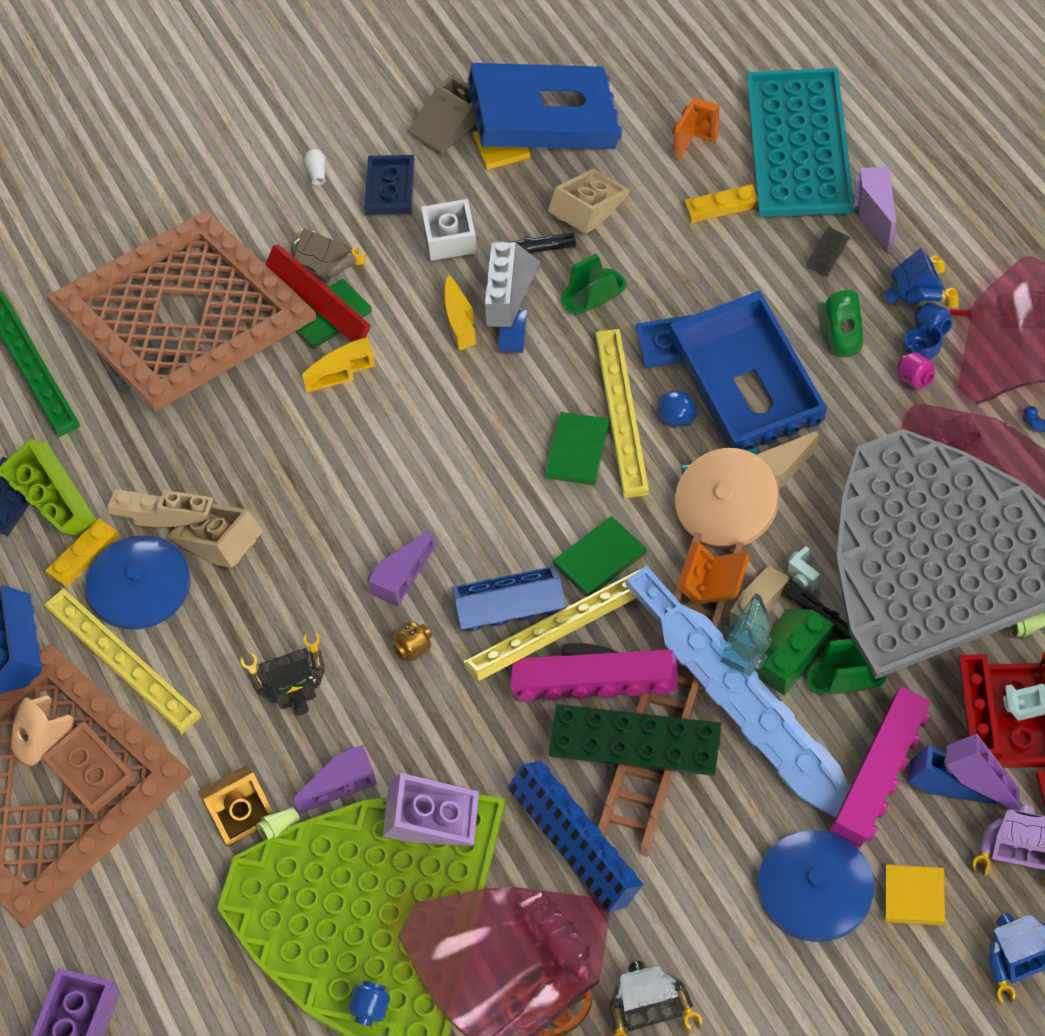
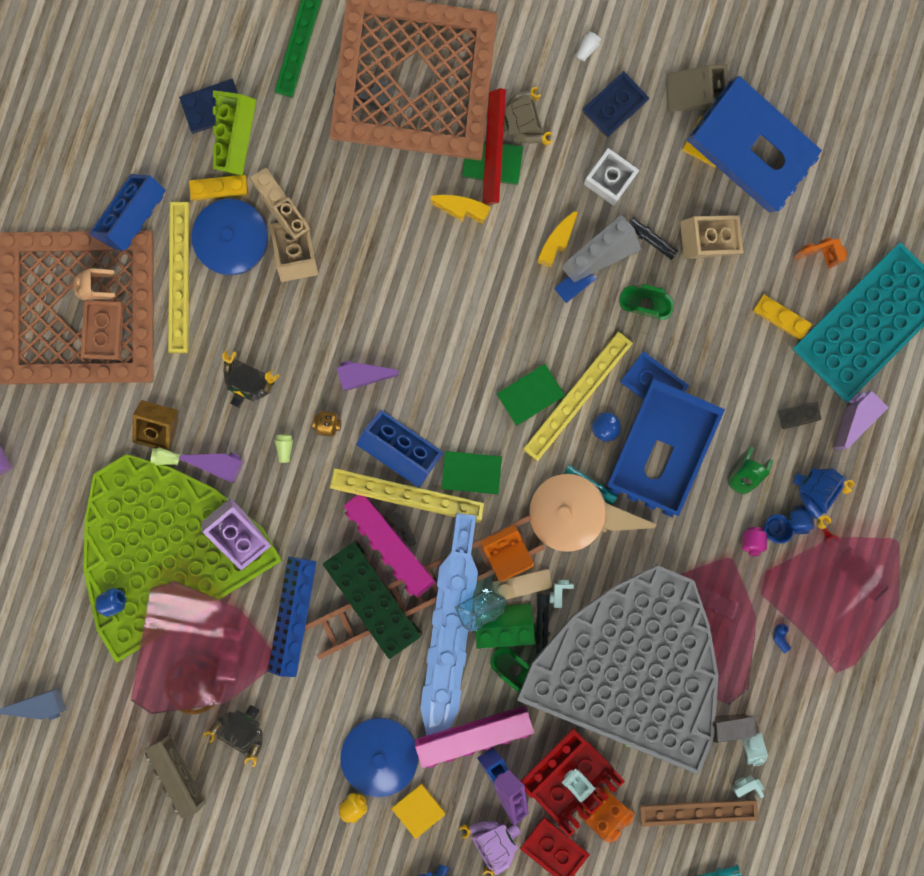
camera: 40 degrees right, 30 degrees up
(391, 700) = (284, 446): none -> yellowish green cone
(848, 955) = (352, 808): none -> yellow head

